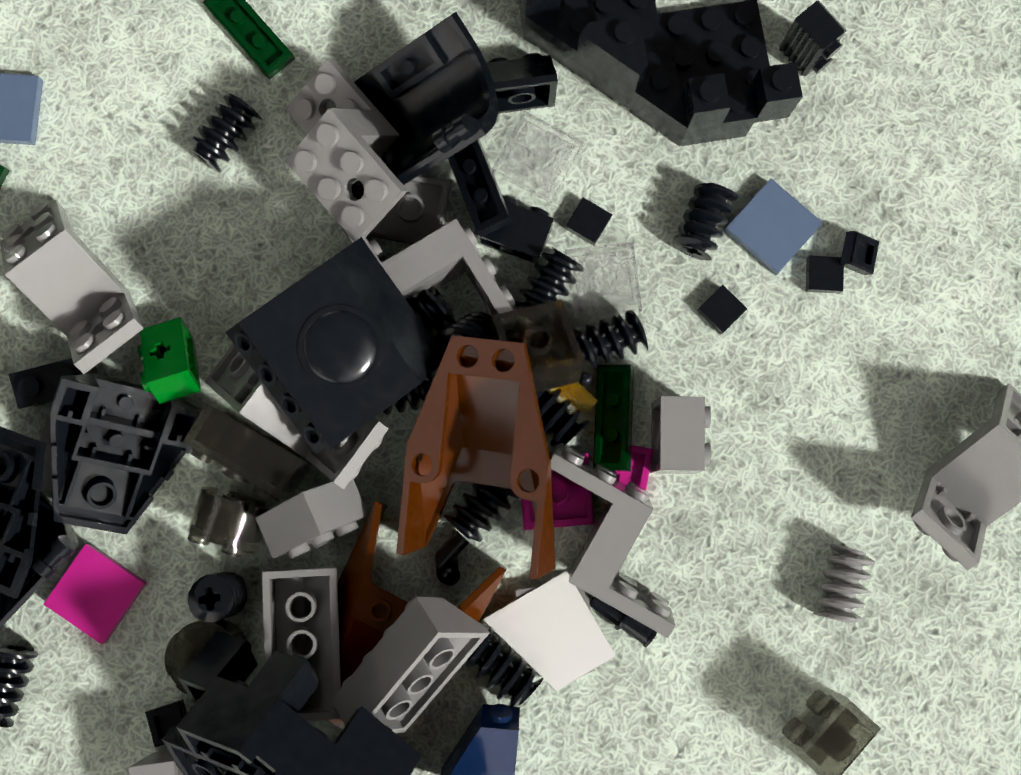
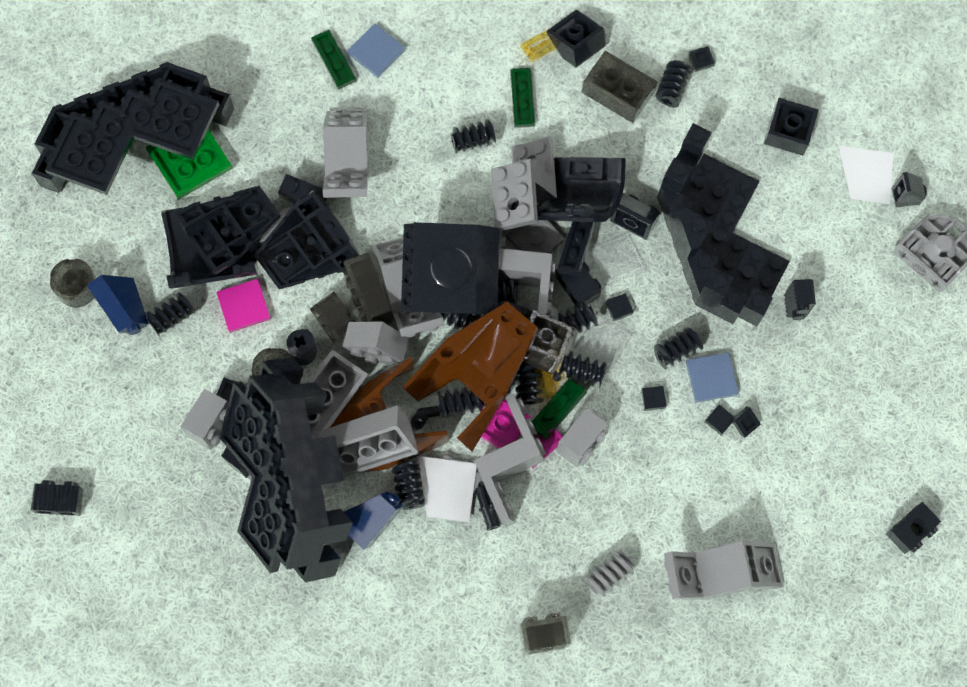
camera: 35 degrees right, 10 degrees down
(168, 361) = (363, 222): green brick -> none

